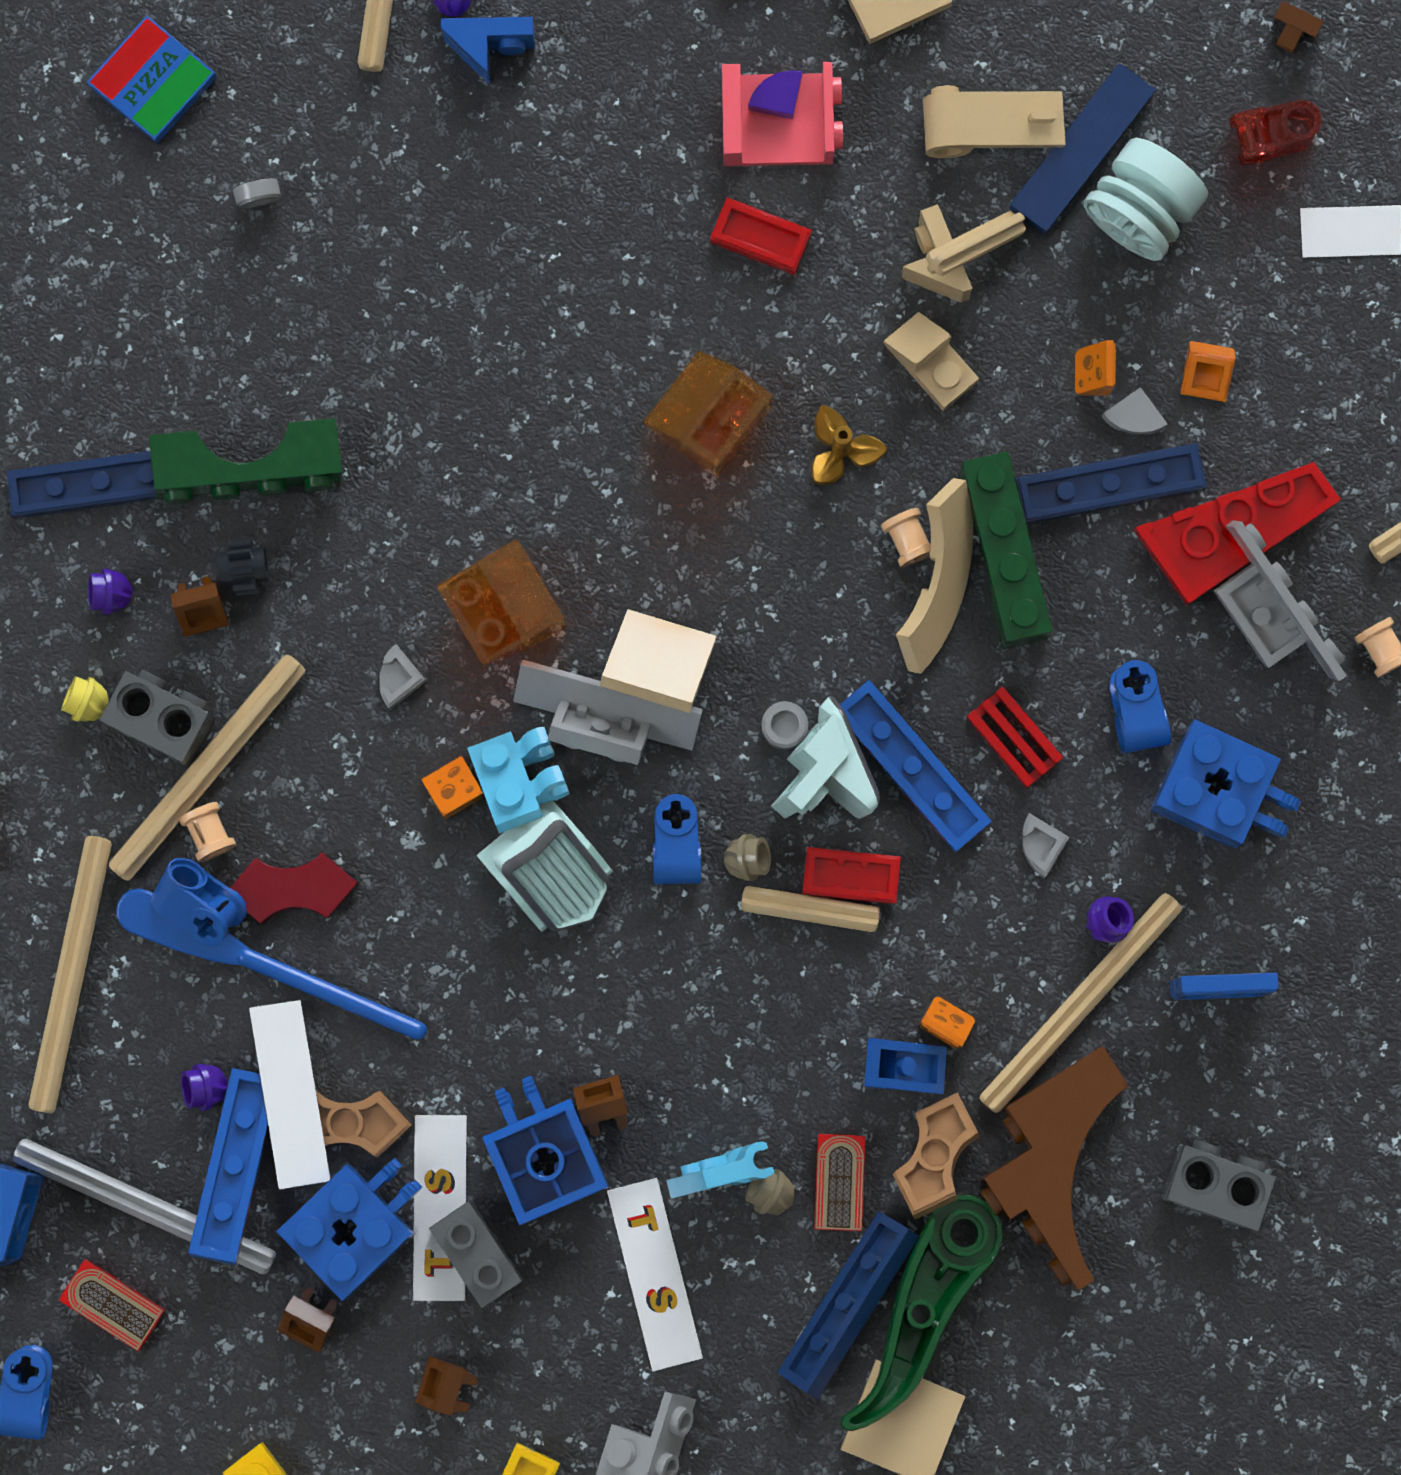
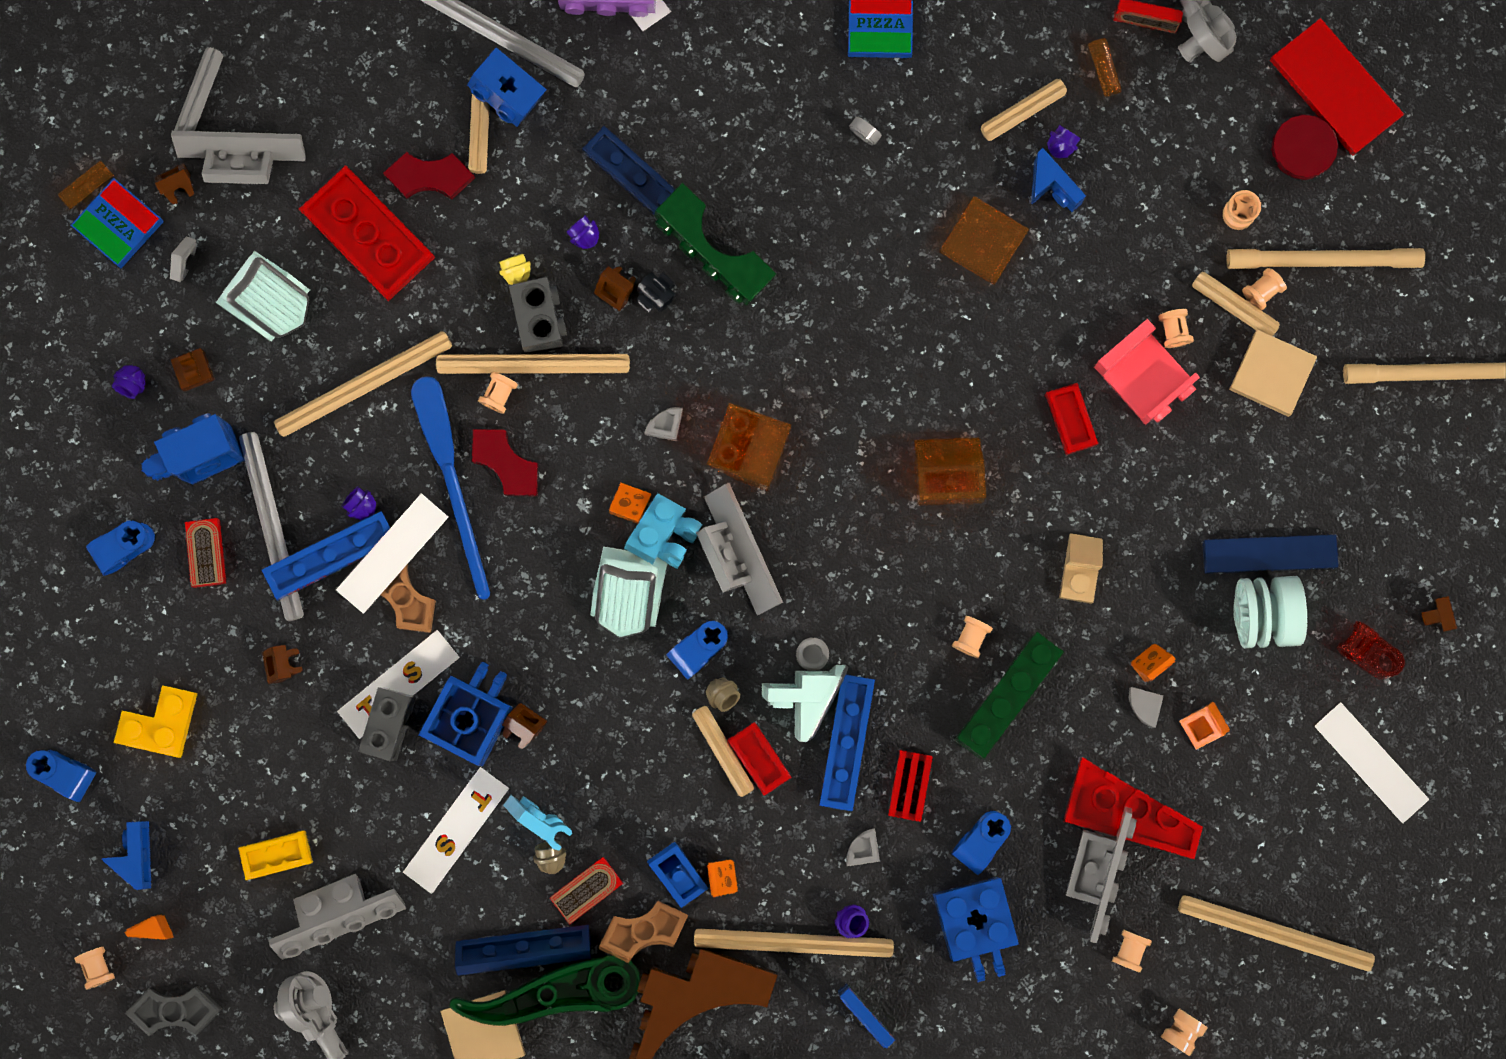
camera: 50 degrees right, 0 degrees up
(194, 901) = (454, 417): blue piece -> none
(379, 1228) = (358, 660): blue hinge -> none
(441, 1386) = (302, 764): reddish brown tile -> none
(487, 166) = (984, 240): none -> clear orange tile
(658, 661) = (789, 556): tile -> none
(756, 43) = (1175, 328): none -> light nougat bush
(777, 94) = (1157, 363): dark purple tile -> none
(834, 432) = (996, 546): pearl gold plant -> none
(930, 235) = (1137, 533): tan slope -> none
(952, 551) = (983, 666): tan tile -> none
(970, 120) = (1242, 490): tan door -> none
(975, 243) = (1165, 538): tan axle -> none
(1111, 483) = (1096, 723): dark blue tile -> none

